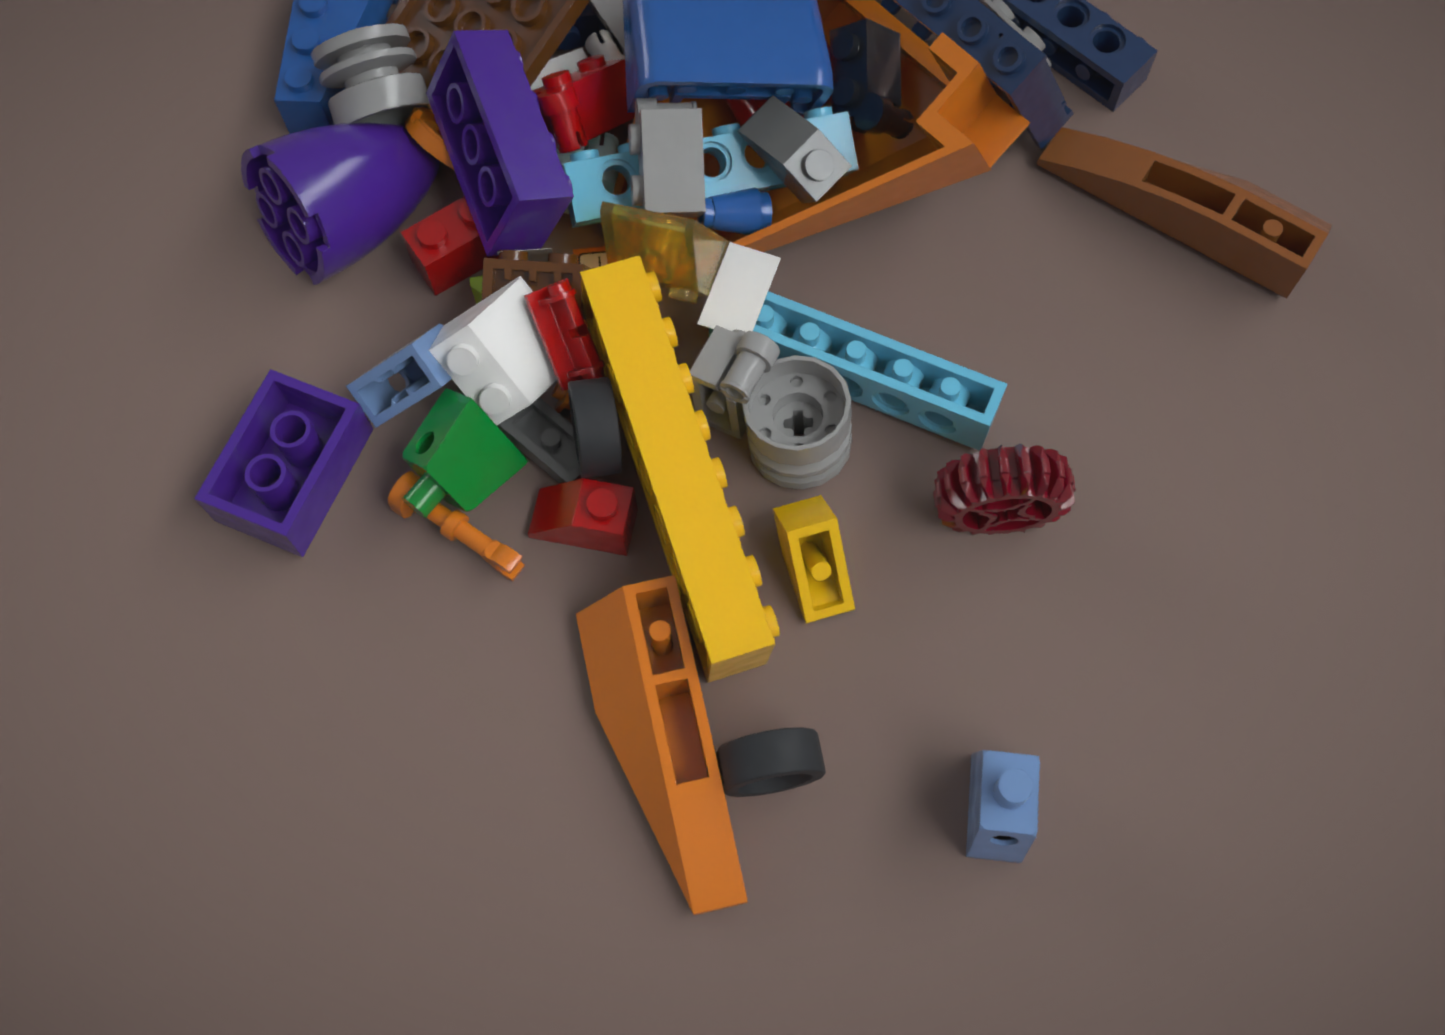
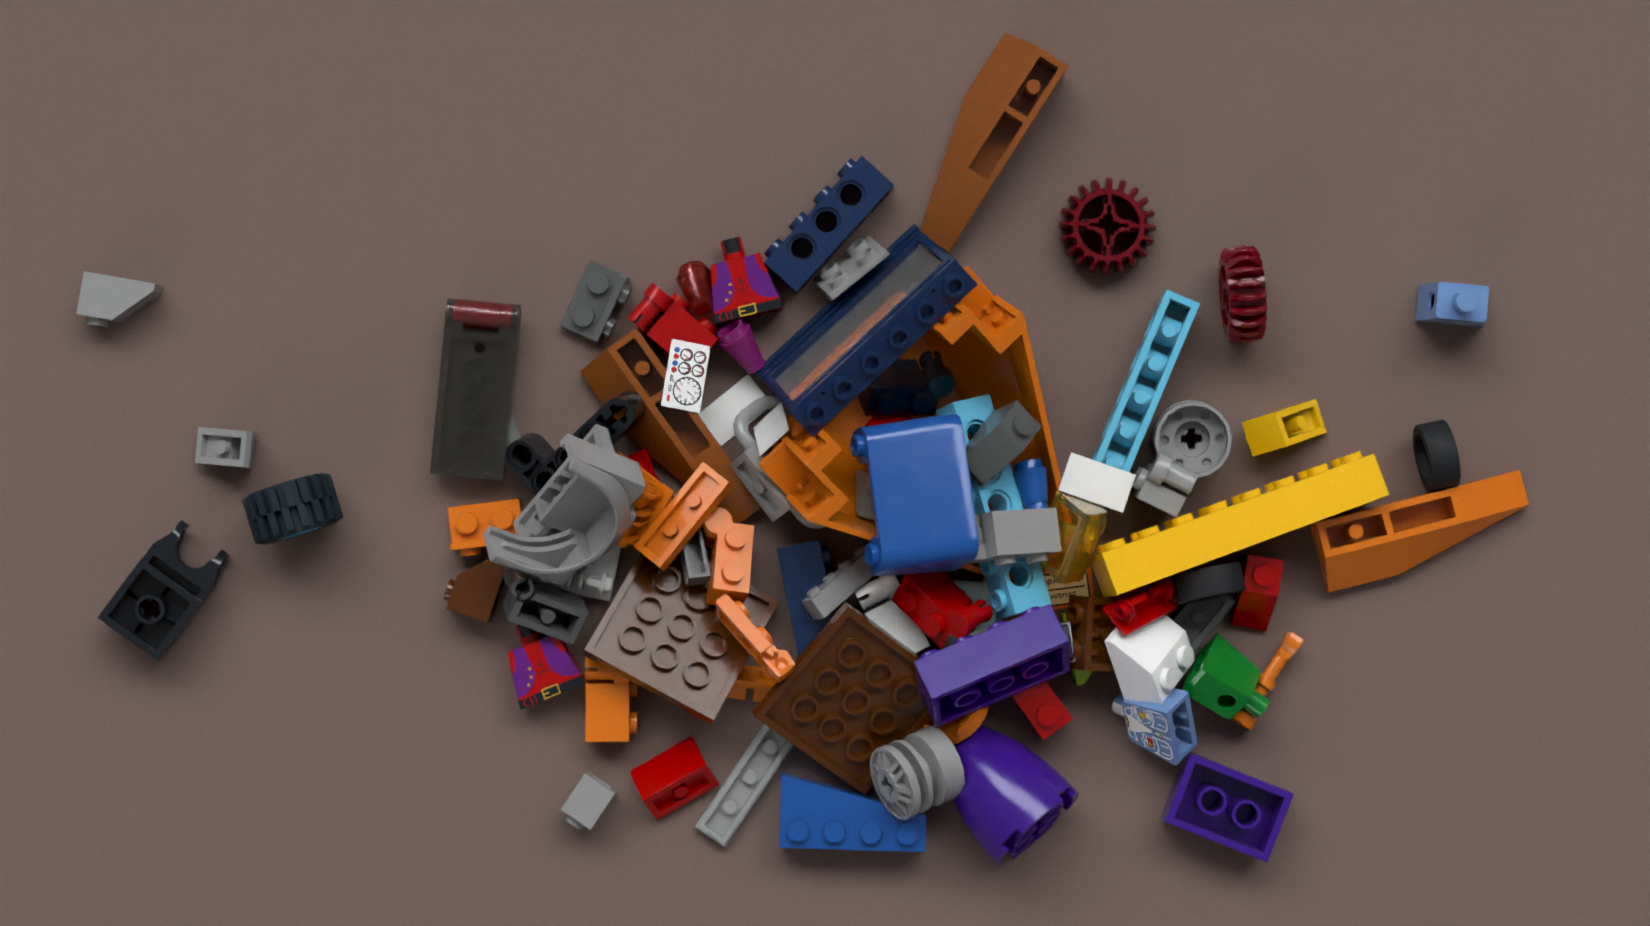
camera: 90 degrees left, 20 degrees up
(1105, 320) = (1089, 226): none -> dark red gear

